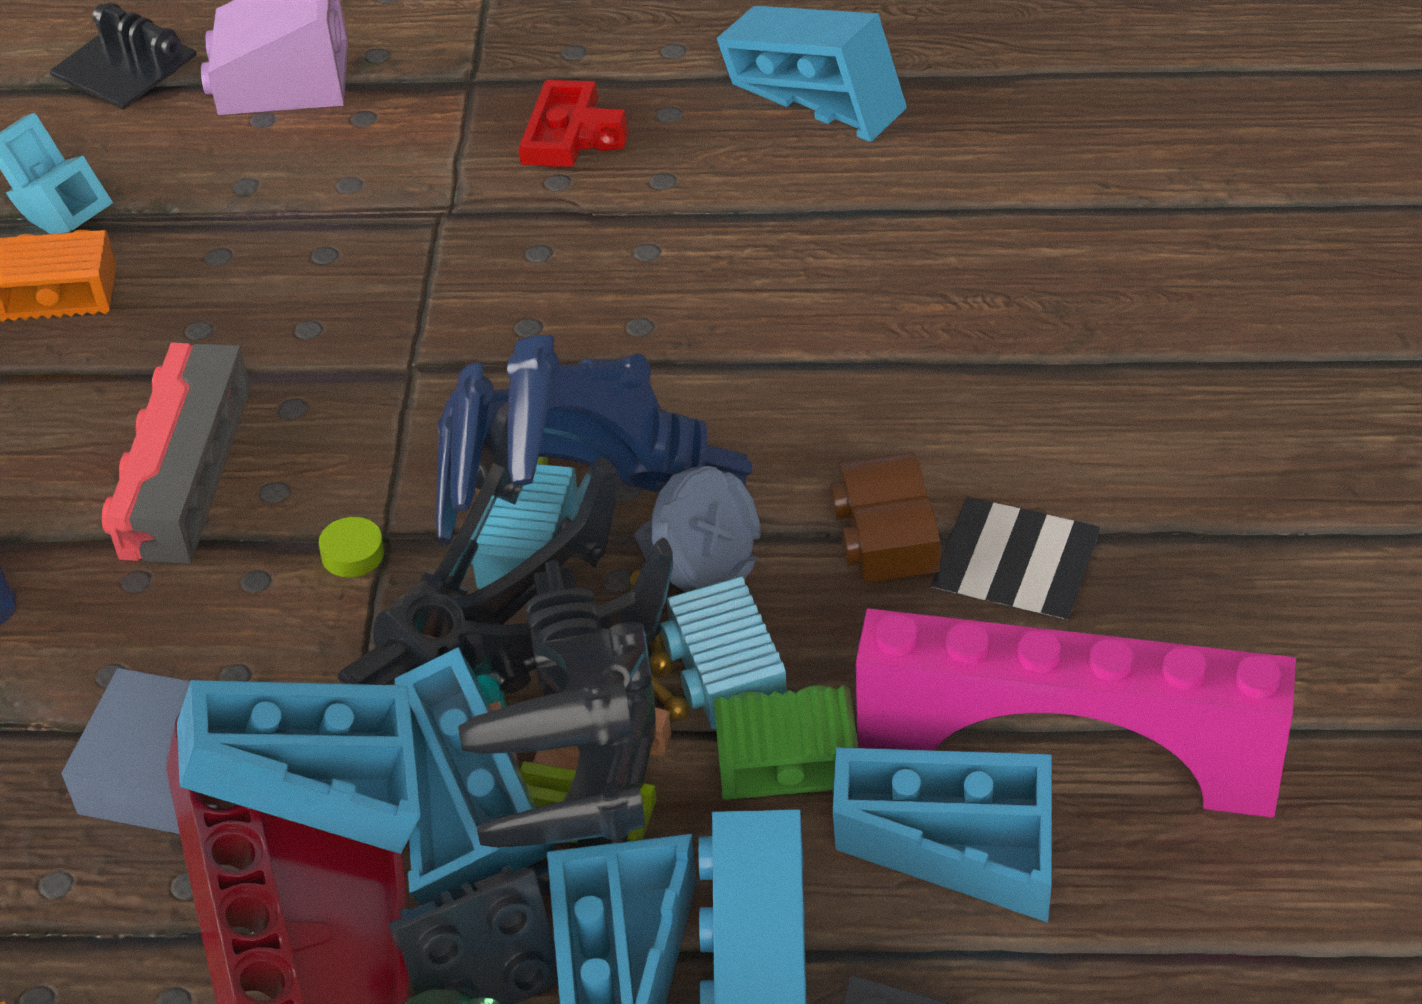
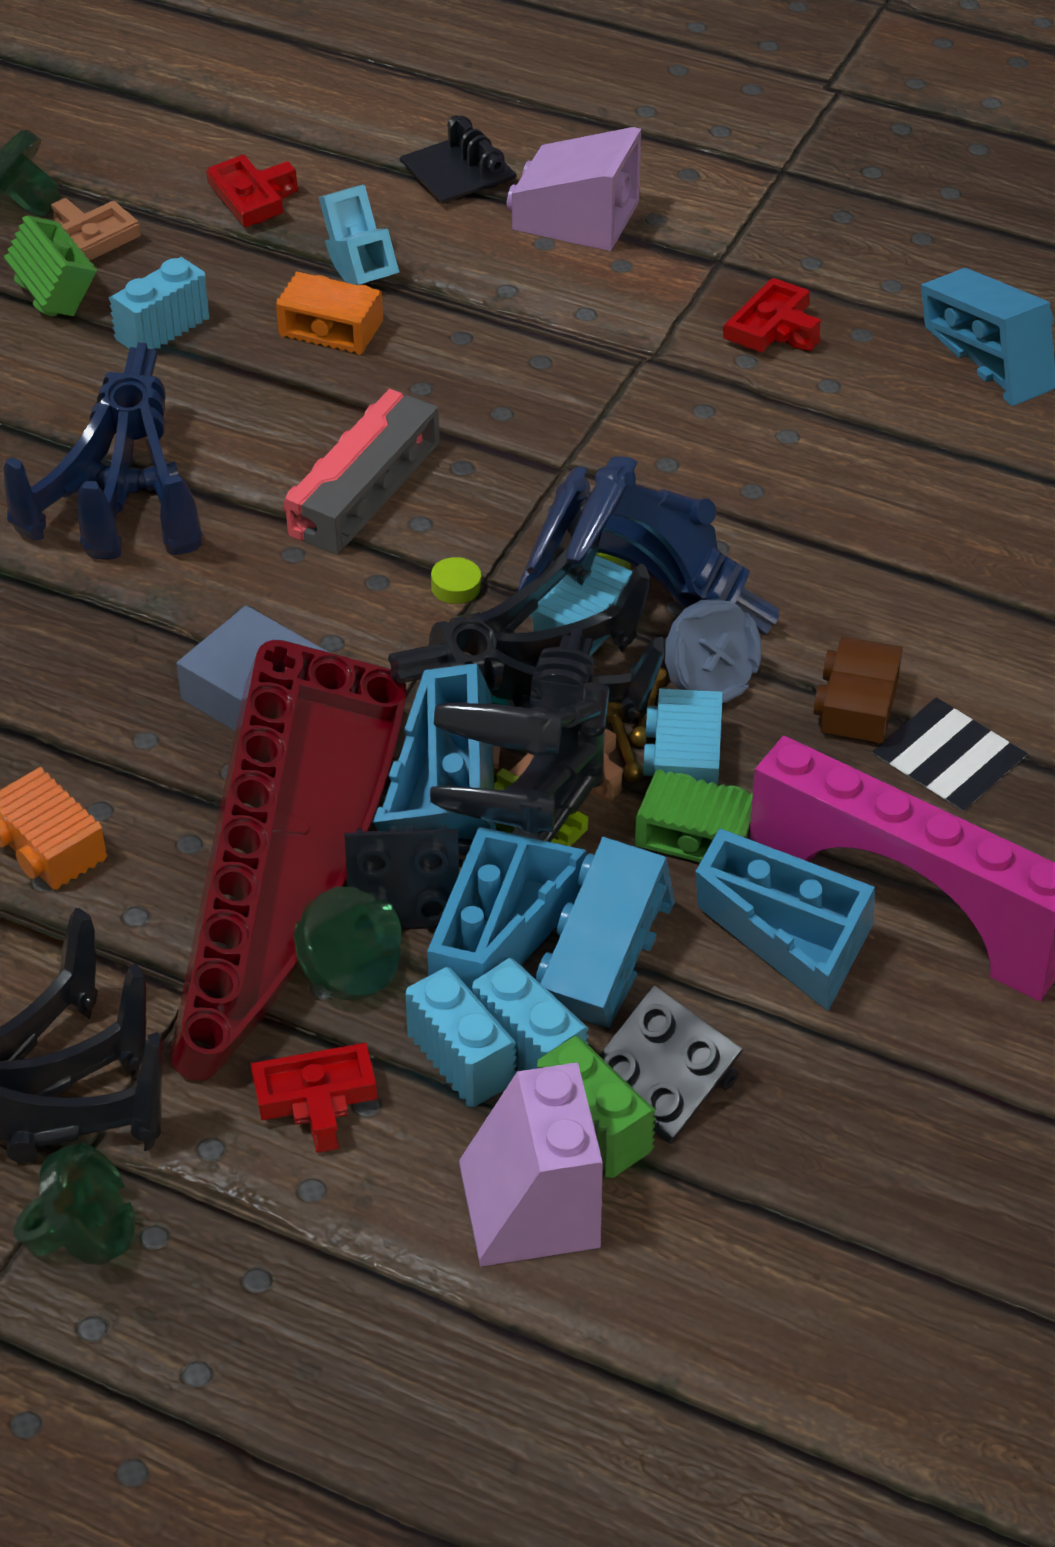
camera: 20 degrees right, 0 degrees up
(306, 754) = (335, 697): dark azure wedge -> none

